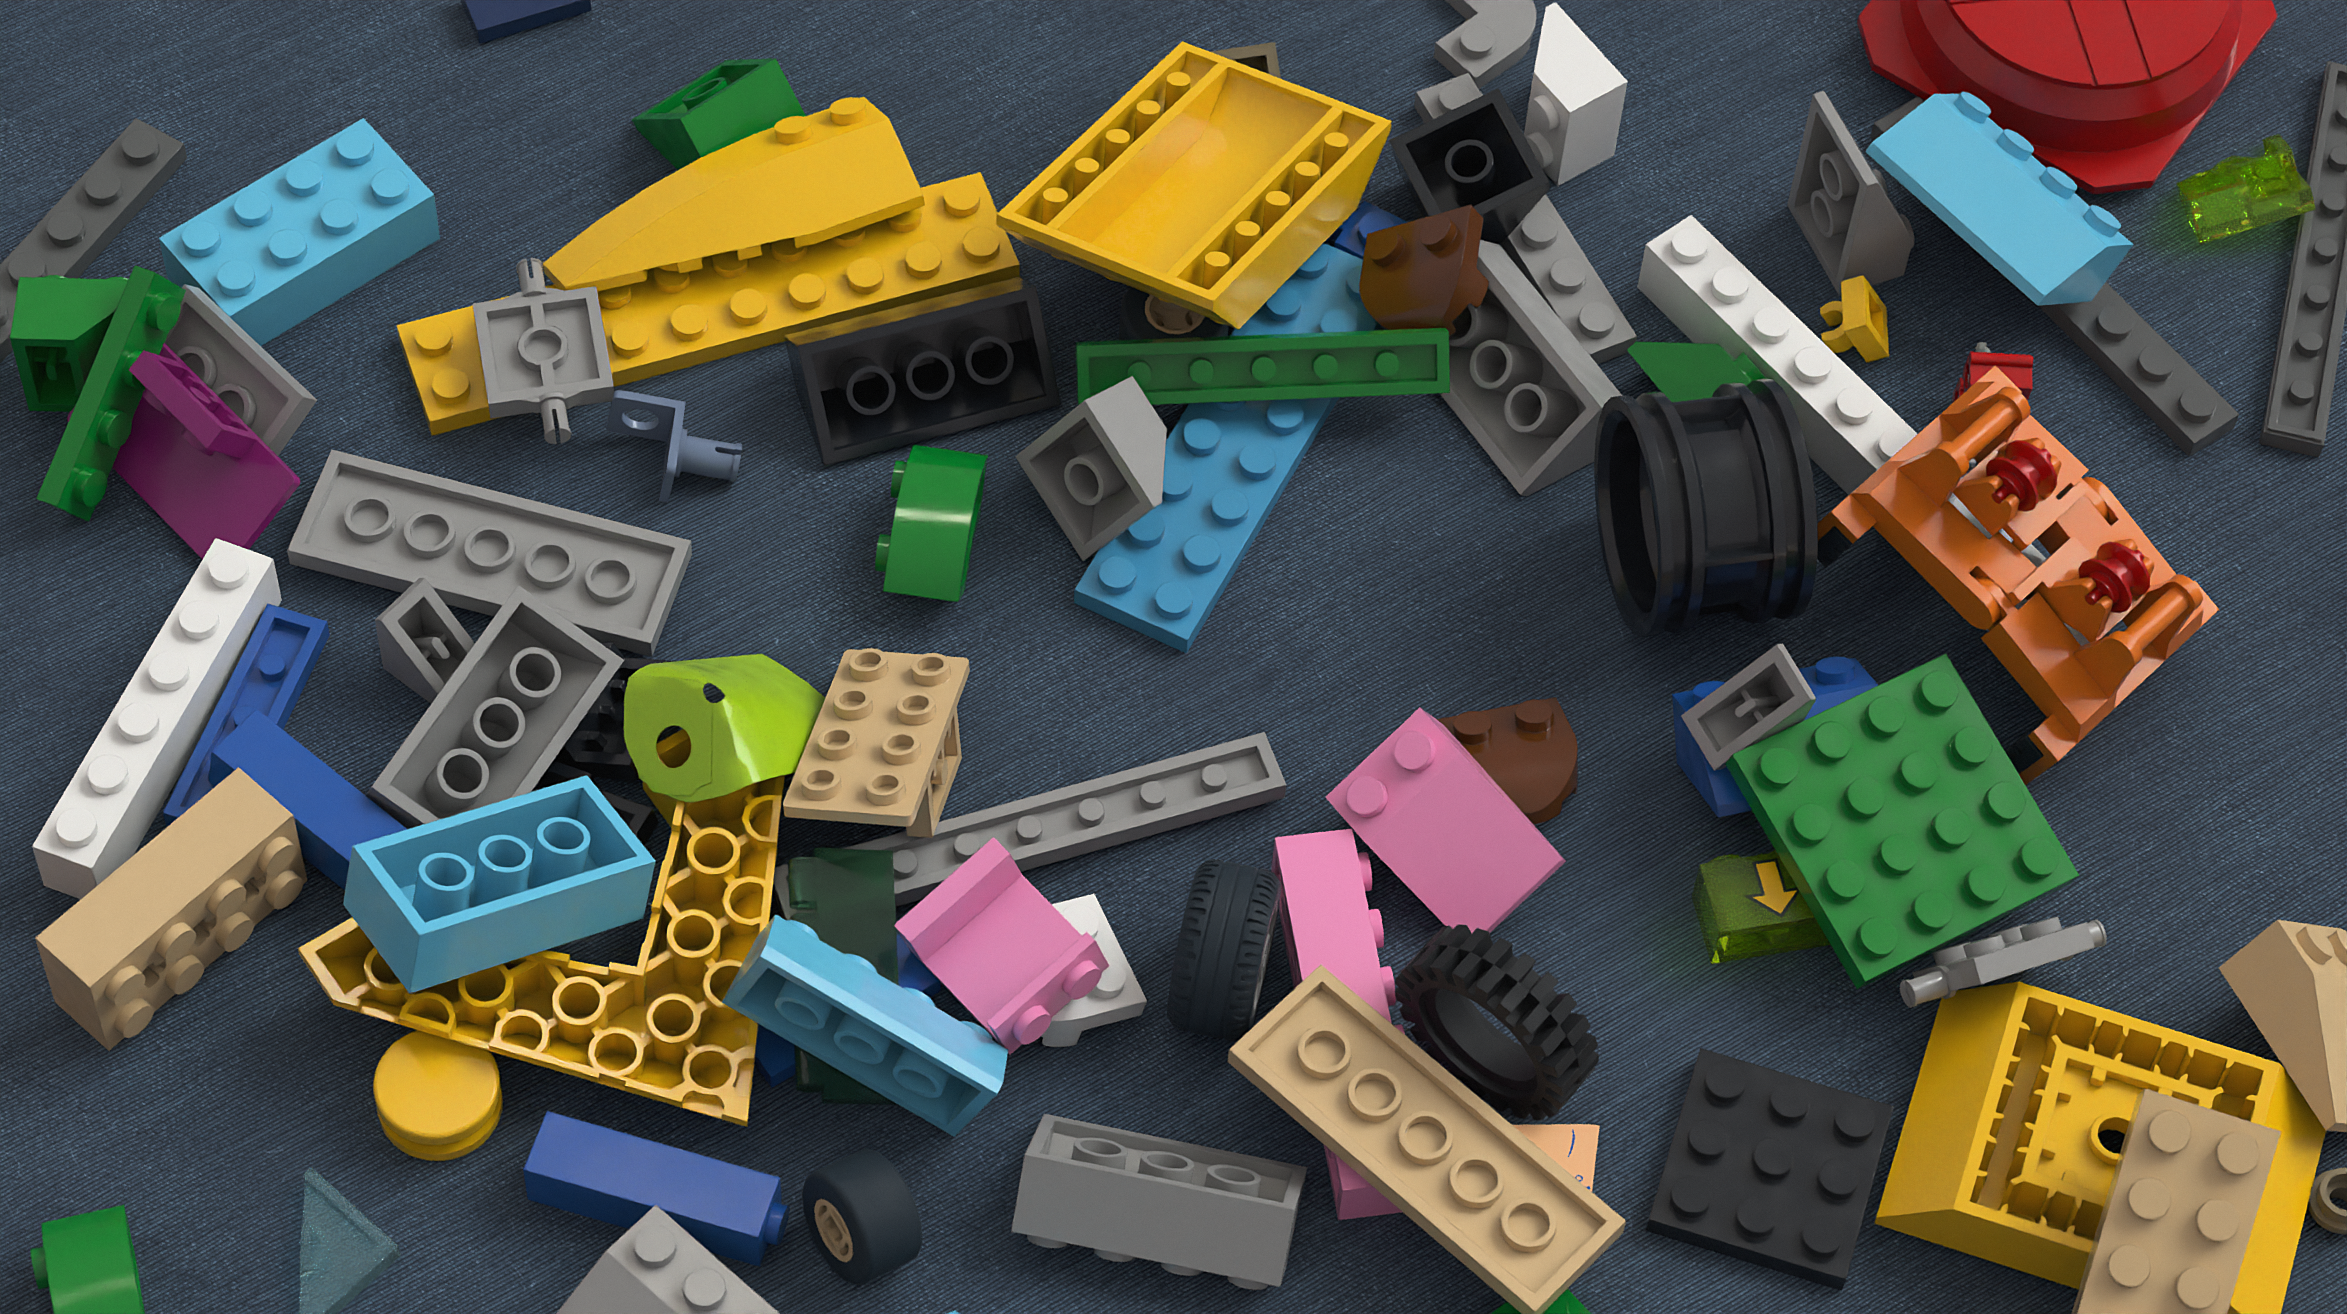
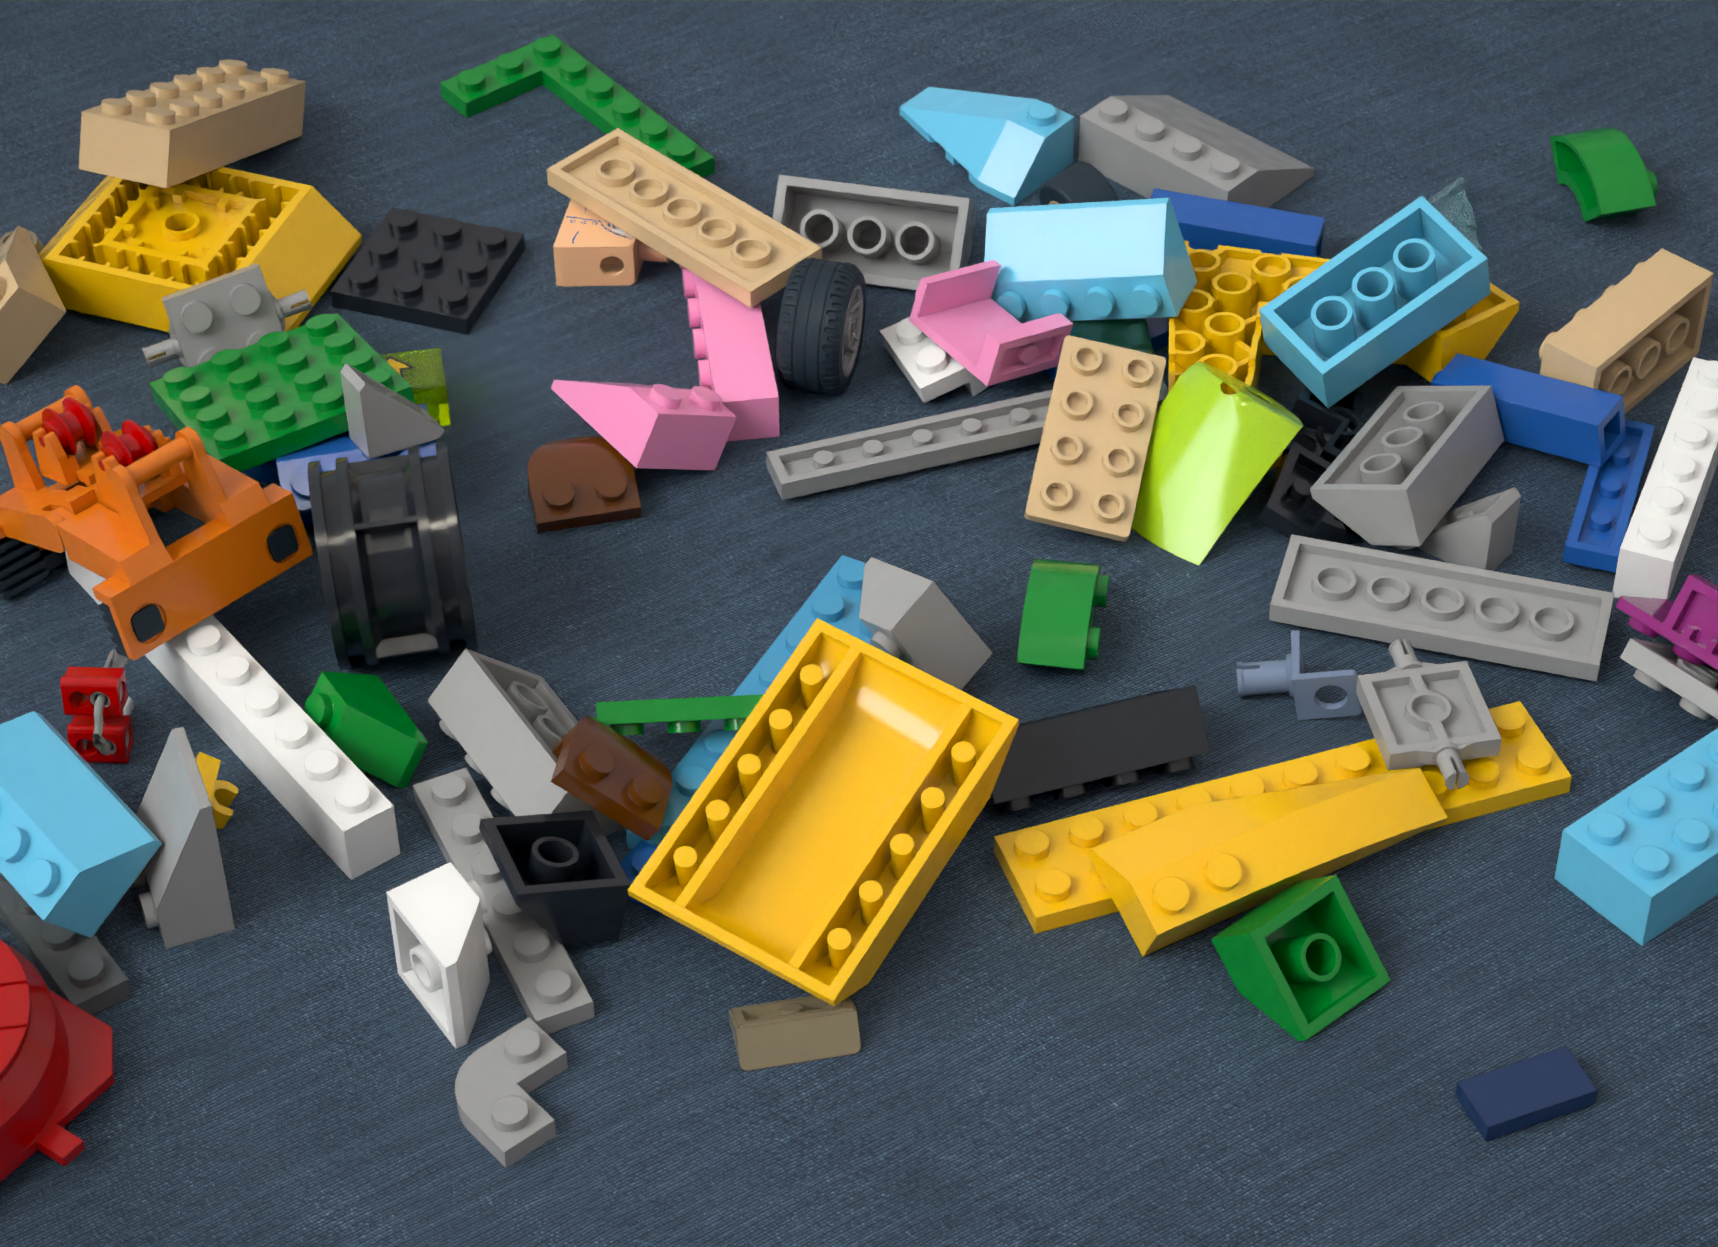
camera: 175 degrees left, 15 degrees down
(1466, 967) = (648, 248): black tyre -> none

